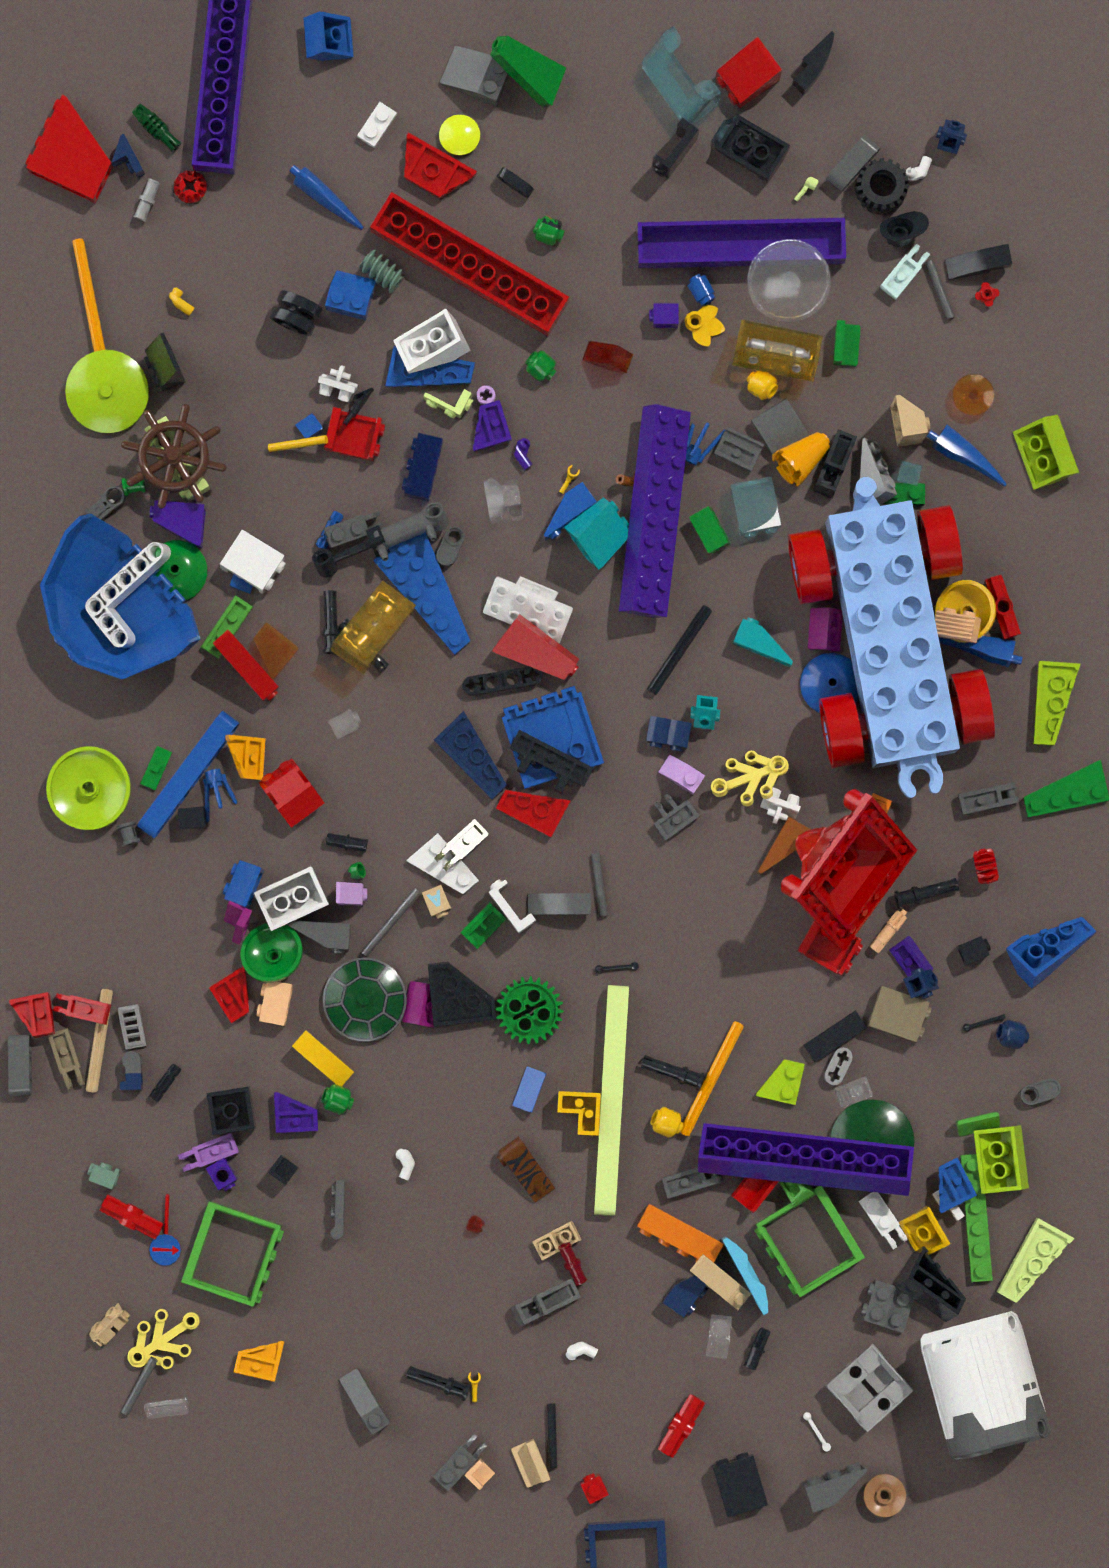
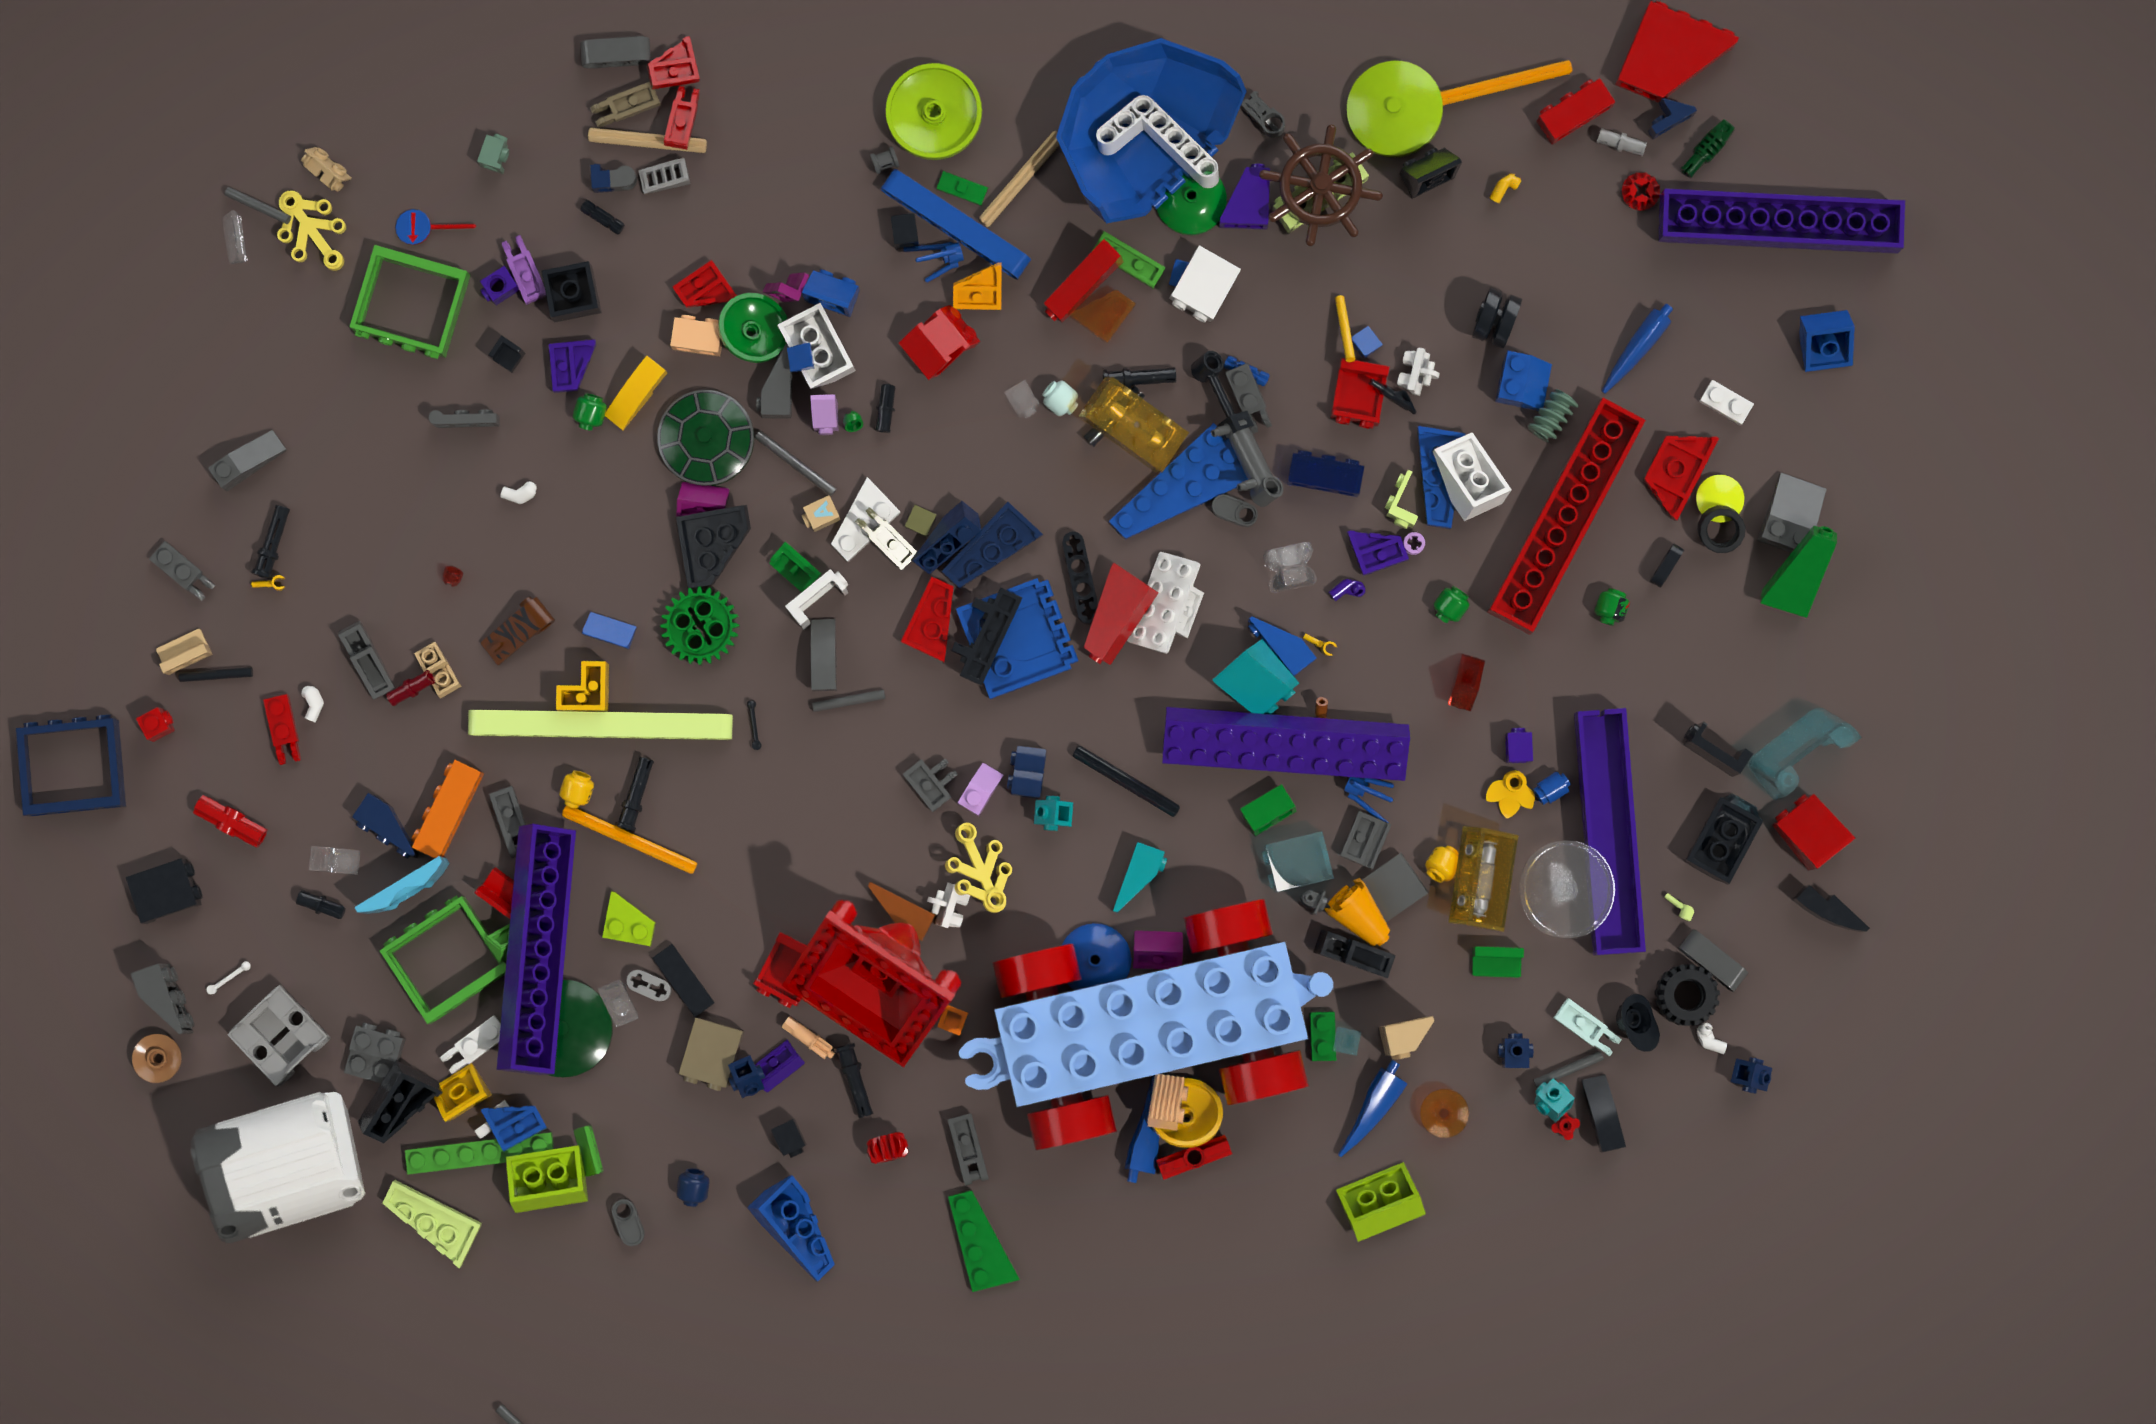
camera: 85 degrees right, 0 degrees up
(117, 237) = (1575, 110): none -> red brick
(131, 1216) = (448, 186): red piece -> none
(136, 488) = (1285, 151): green bush -> none
(151, 716) = (1019, 180): none -> tan axle
(260, 1361) = (289, 339): light orange wing -> none
(301, 911) = (800, 357): none -> blue slope
(345, 690) = (1060, 398): none -> light aqua head
(446, 816) = (920, 520): none -> olive tile
(461, 790) = (948, 537): none -> dark blue slope
(472, 139) = (1728, 546): none -> black tyre
(479, 1473) = (168, 593): light nougat panel -> none
(600, 1378) = (282, 726): none -> red hinge
(720, 1282) = (392, 857): tan slope -> none
(791, 492) = (1314, 901): none -> dark grey hinge
(876, 468) = (1345, 1000): light grey slope -> none
(931, 330) = (1525, 1051): none -> dark blue brick
(965, 302) = (1553, 1099): none -> teal brick
(967, 1027) = (700, 1135): black hinge -> none
(1053, 692) = (1092, 1220): lime wing -> none

